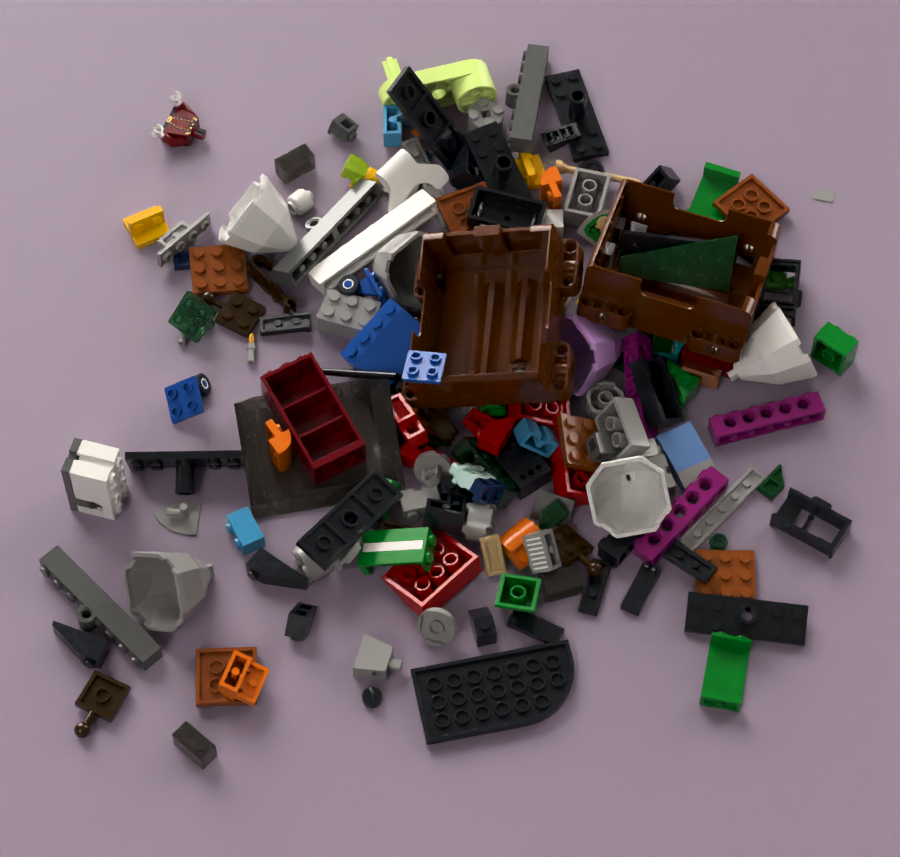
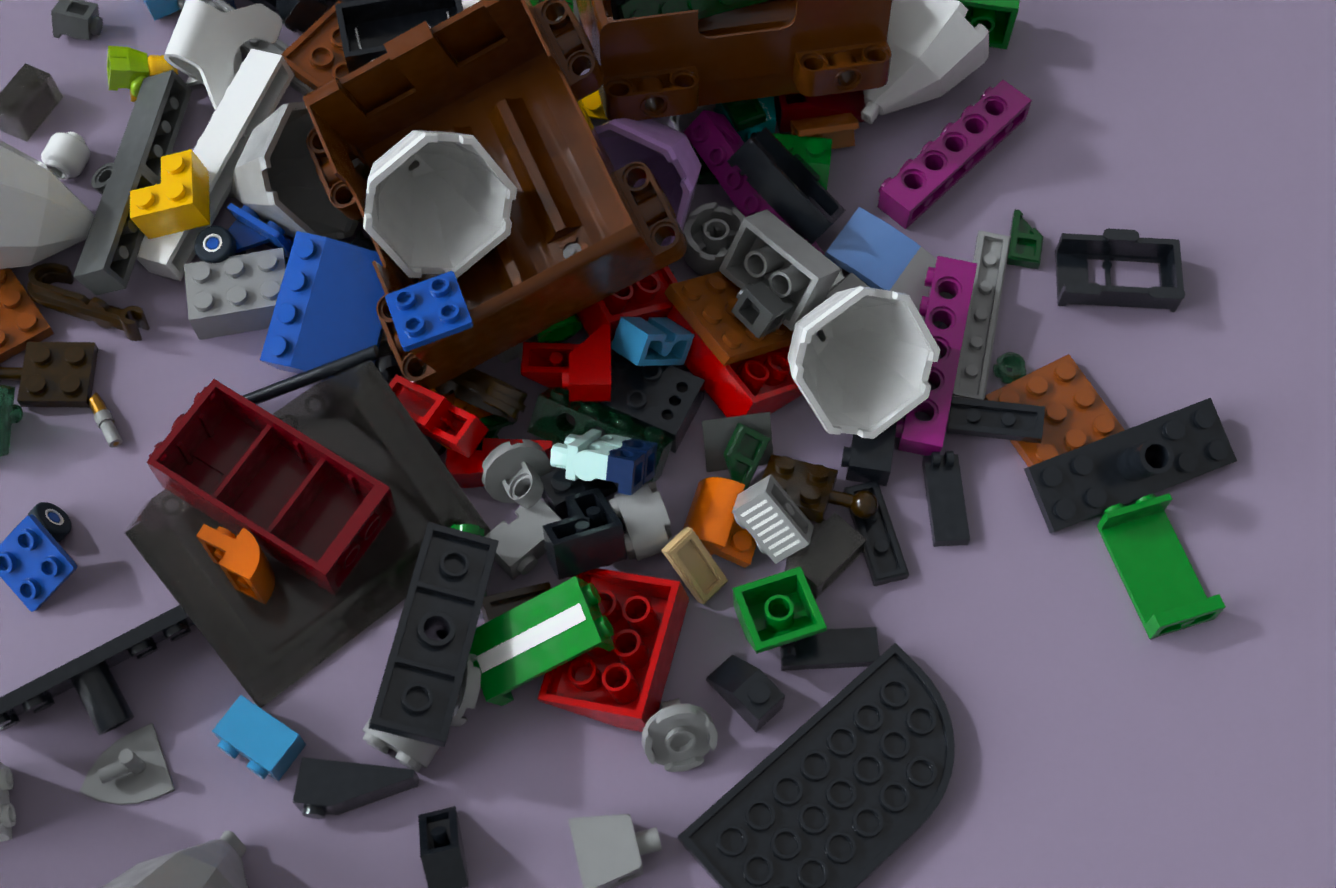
camera: 30 degrees left, 5 degrees up
(285, 323) = (141, 354): black hinge -> none
(342, 254) = (177, 202): none -> yellow brick
(459, 317) = (437, 203): none -> white piece

